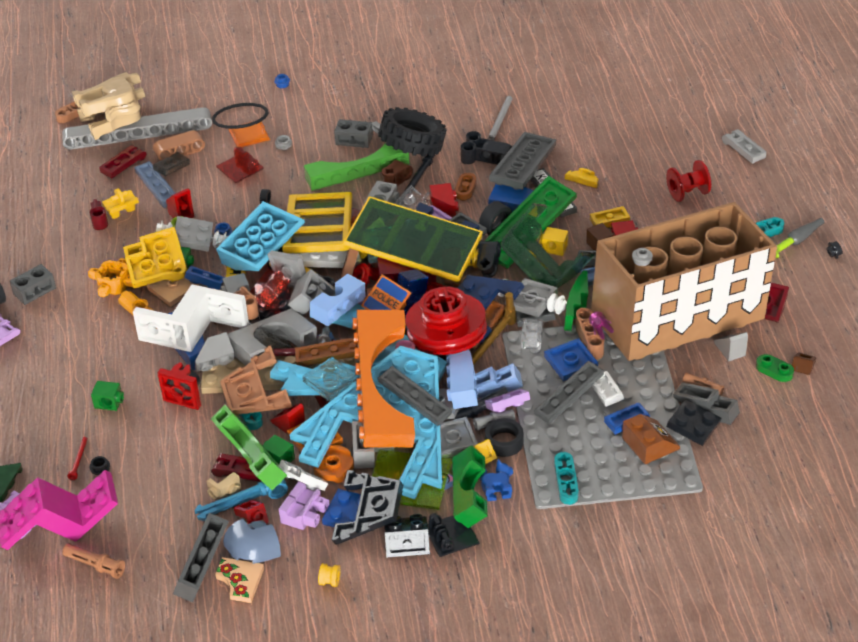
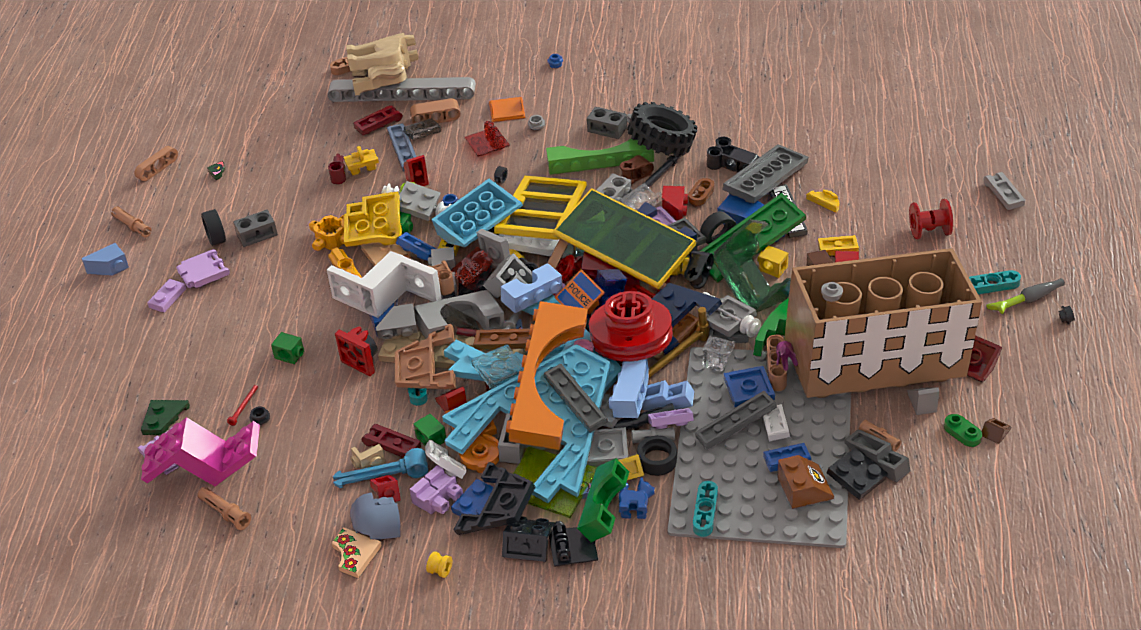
camera: 15 degrees right, 0 degrees up
(200, 557) = (321, 524): dark grey brick -> none
(243, 125) = (502, 100): black piece -> none
(244, 440) = (406, 442): bright green arch -> none
(500, 118) = (759, 127): light grey piece -> none

